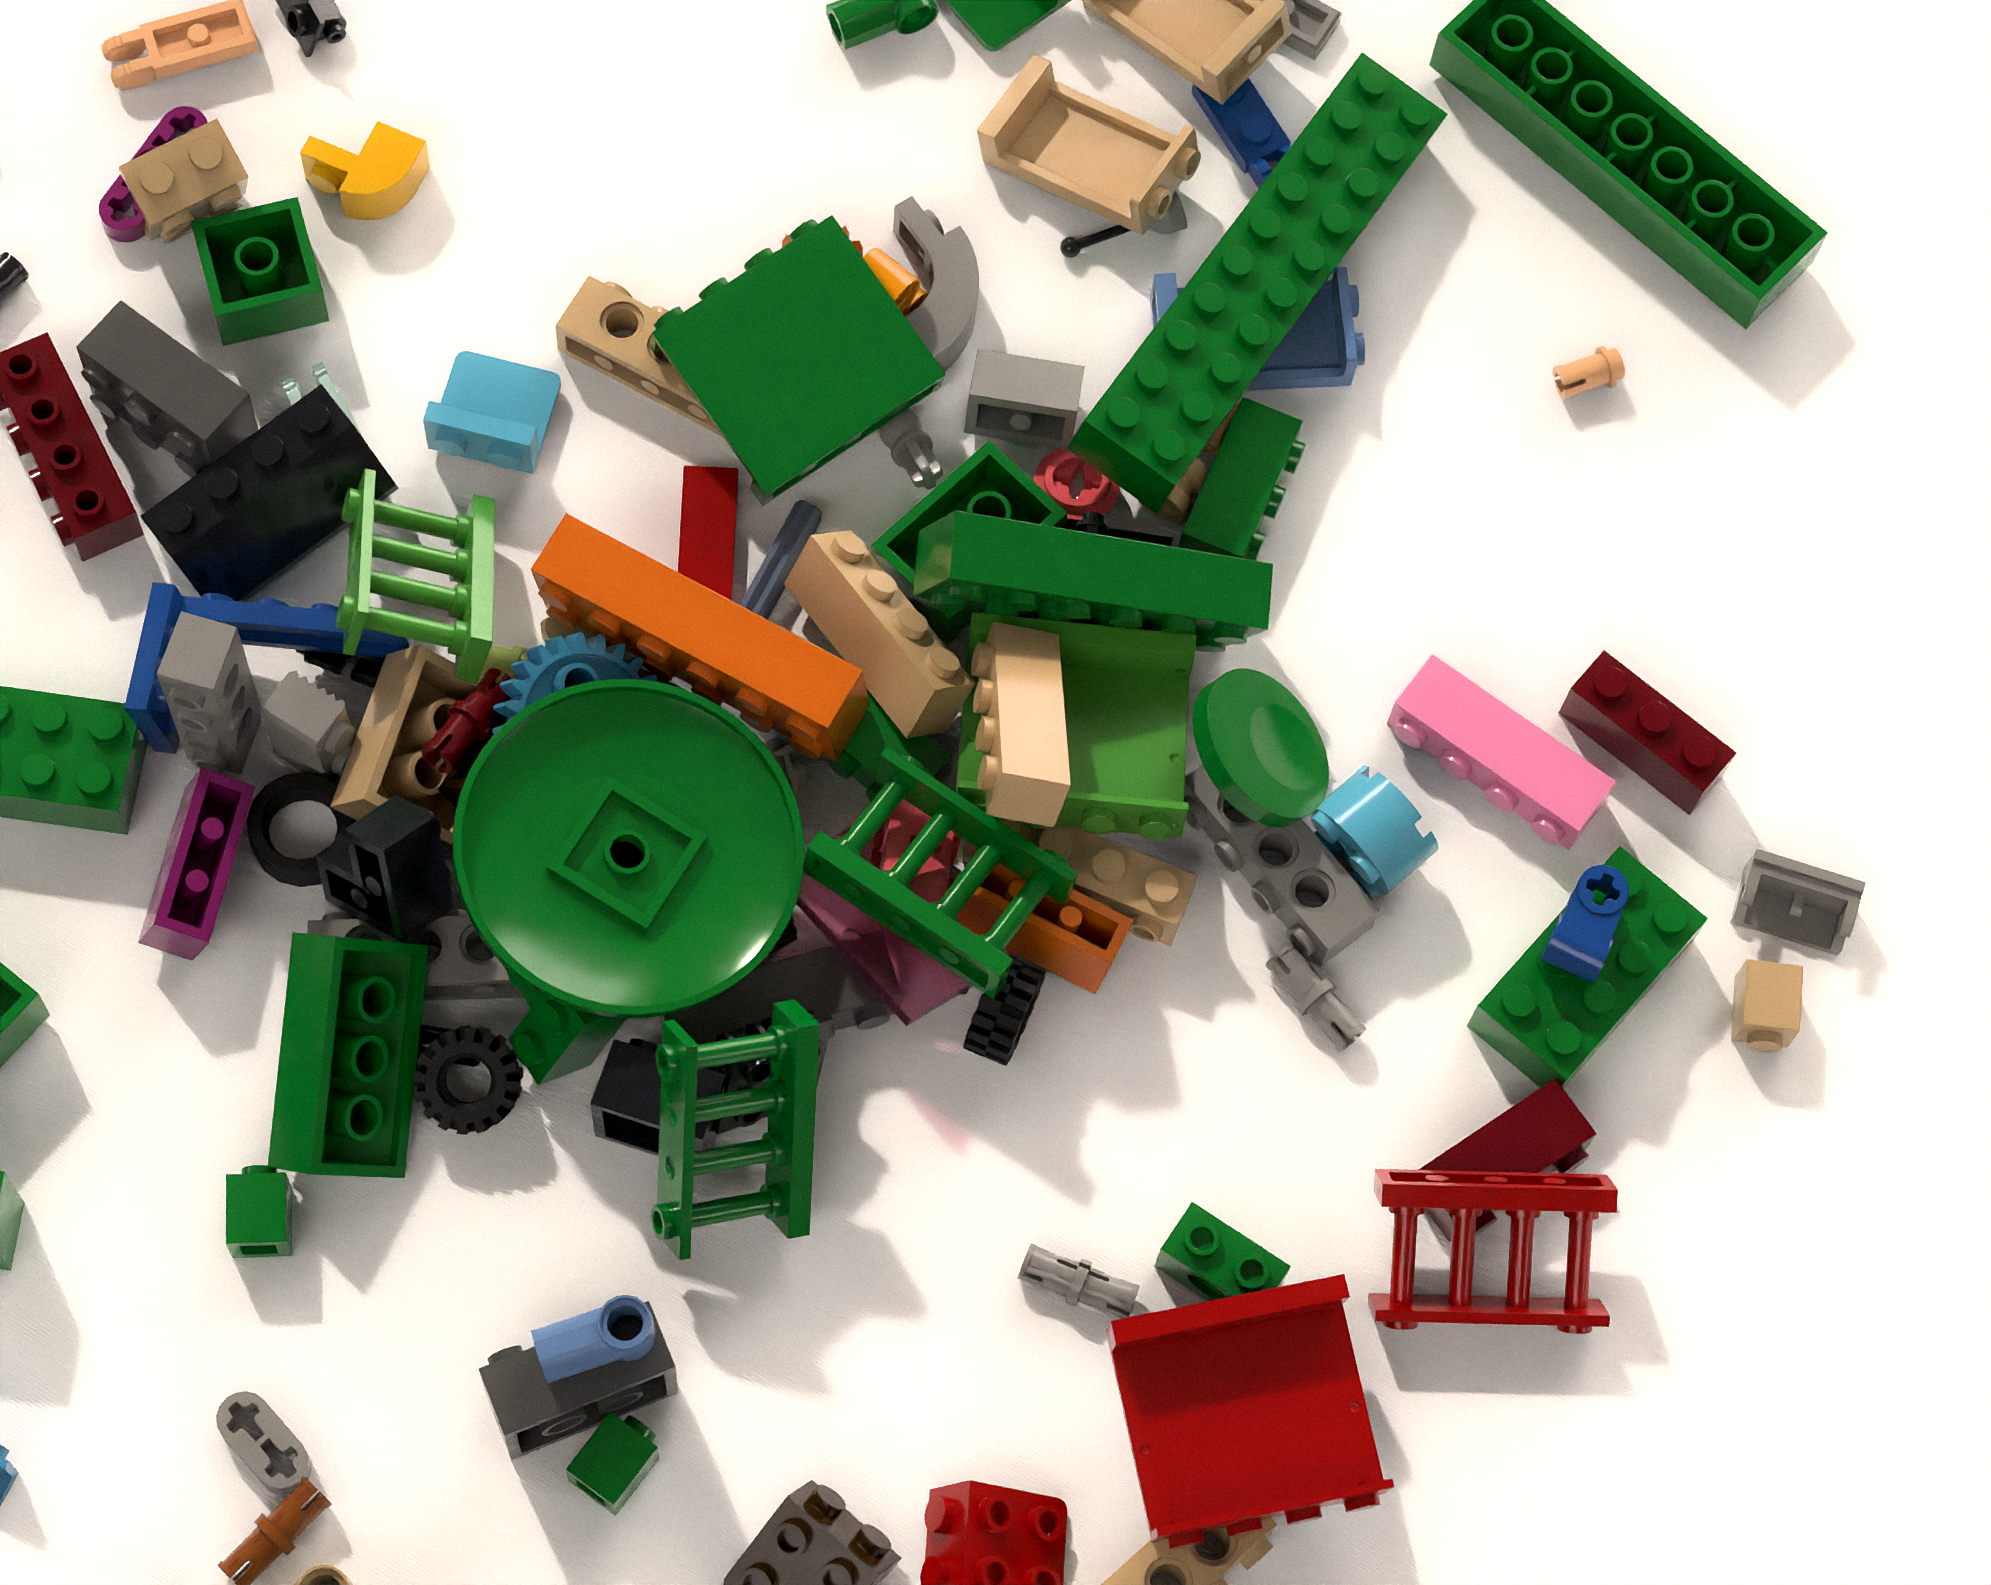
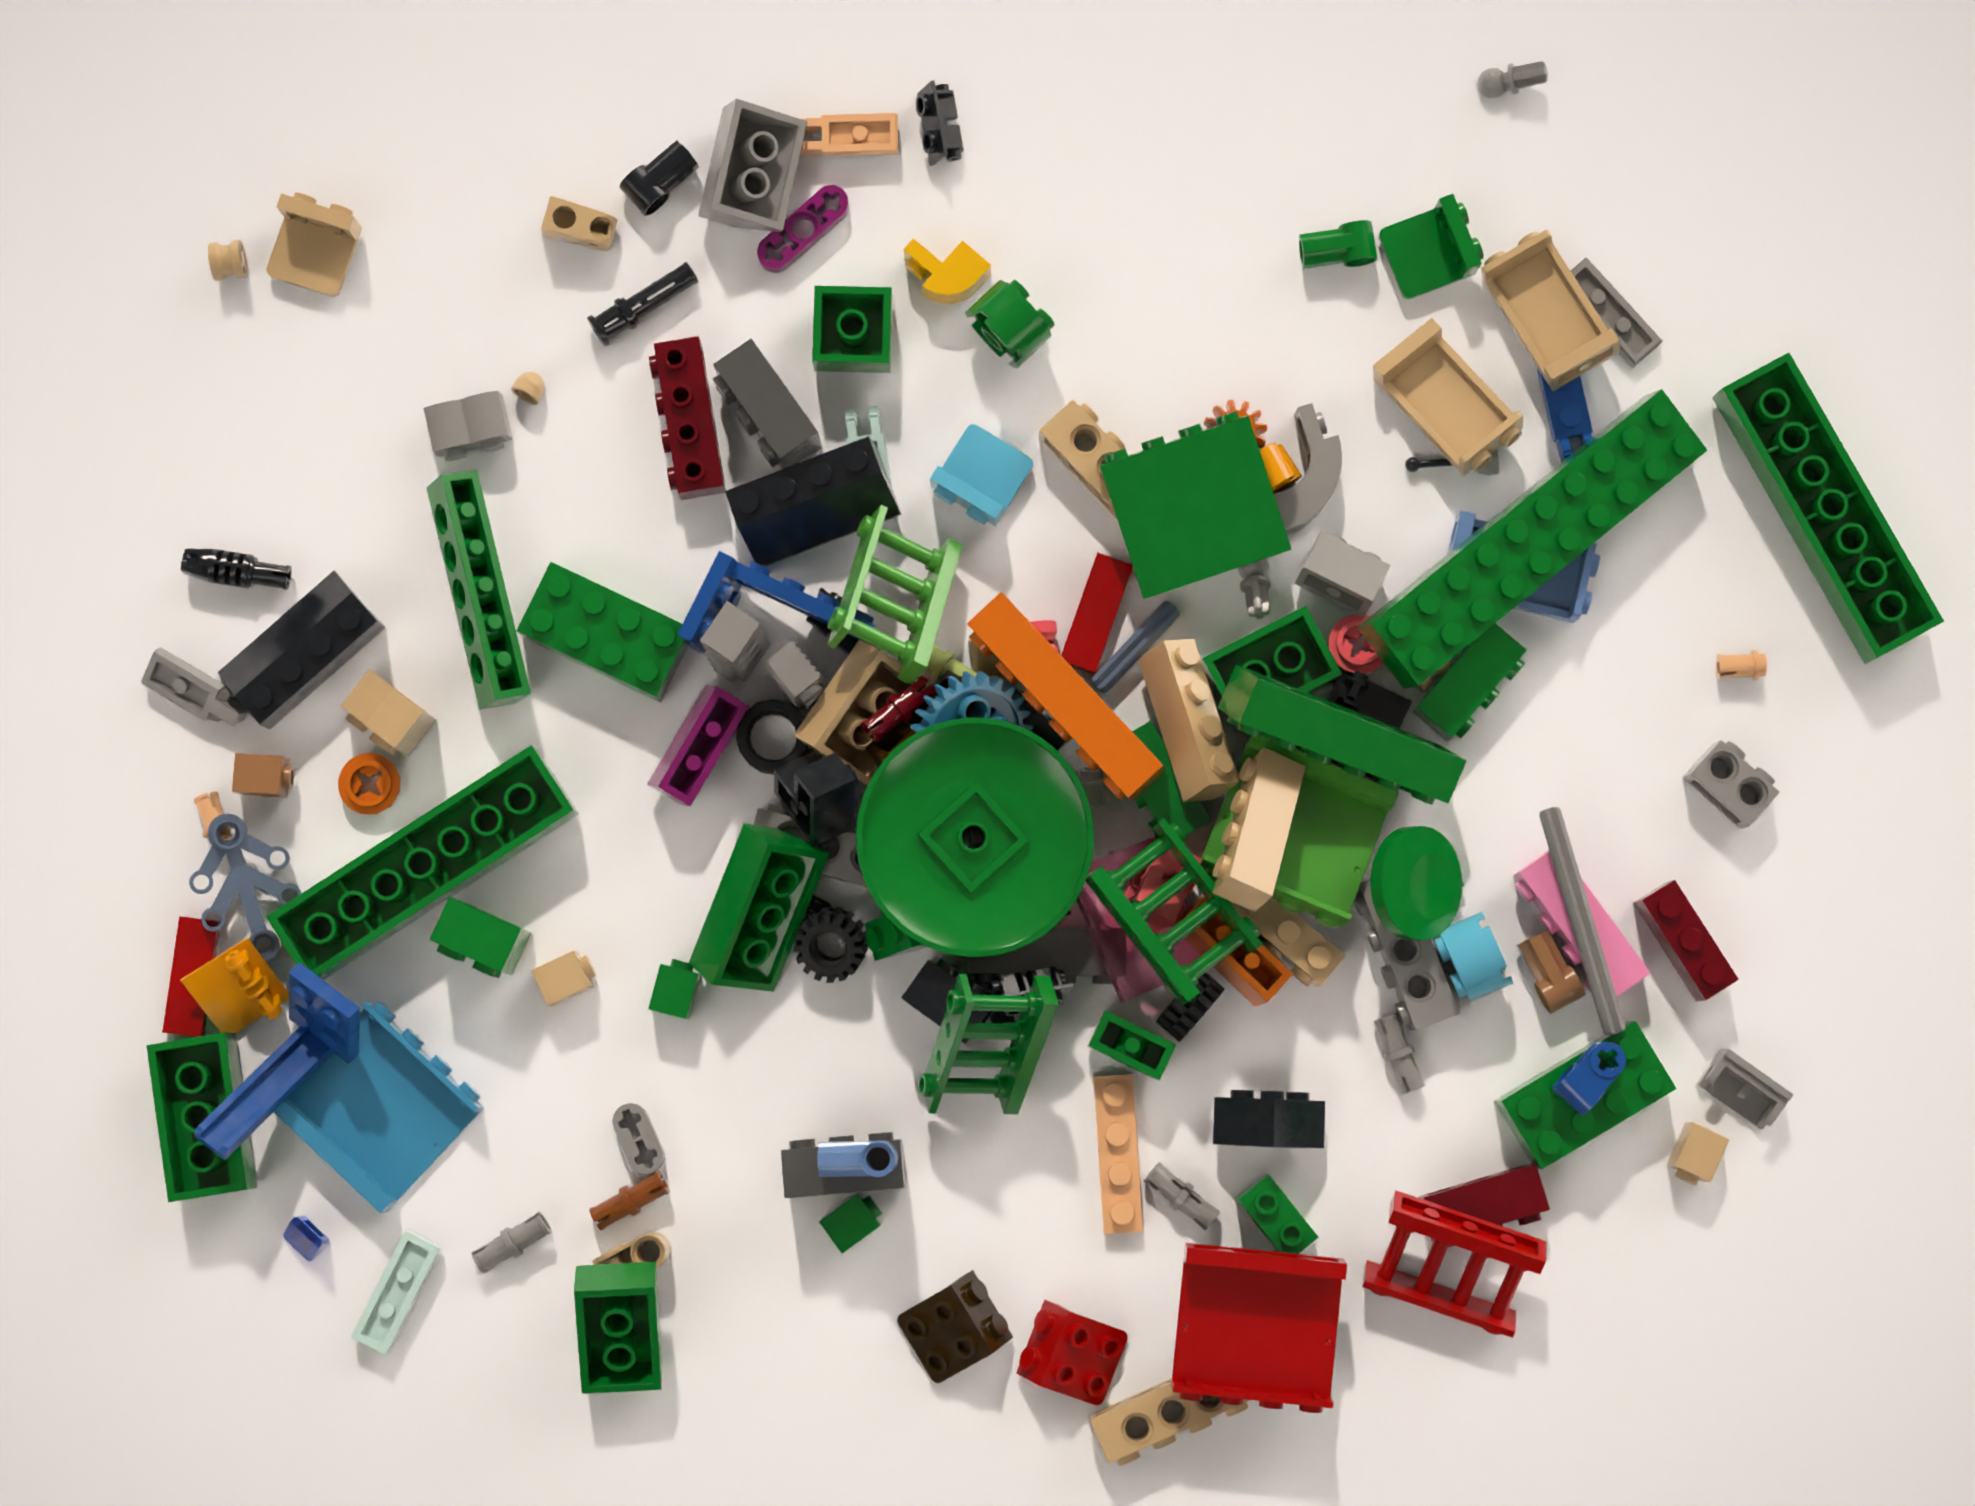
camera: 25 degrees right, 15 degrees up
(62, 109) = (752, 167): none -> light grey slope
(90, 1243) = (564, 977): none -> tan brick
(186, 181) = (818, 254): tan bracket -> none
(473, 203) = (1010, 322): none -> green brick
(939, 1089) = (1131, 1045): none -> green brick
(969, 1253) = (1118, 1154): none -> light nougat plate
(1166, 1132) = (1269, 1120): none -> black brick
(1492, 837) = (1555, 981): none -> medium nougat piece
(1500, 736) = (1582, 921): none -> light grey axle
(1626, 532) = (1726, 792): none -> light grey brick

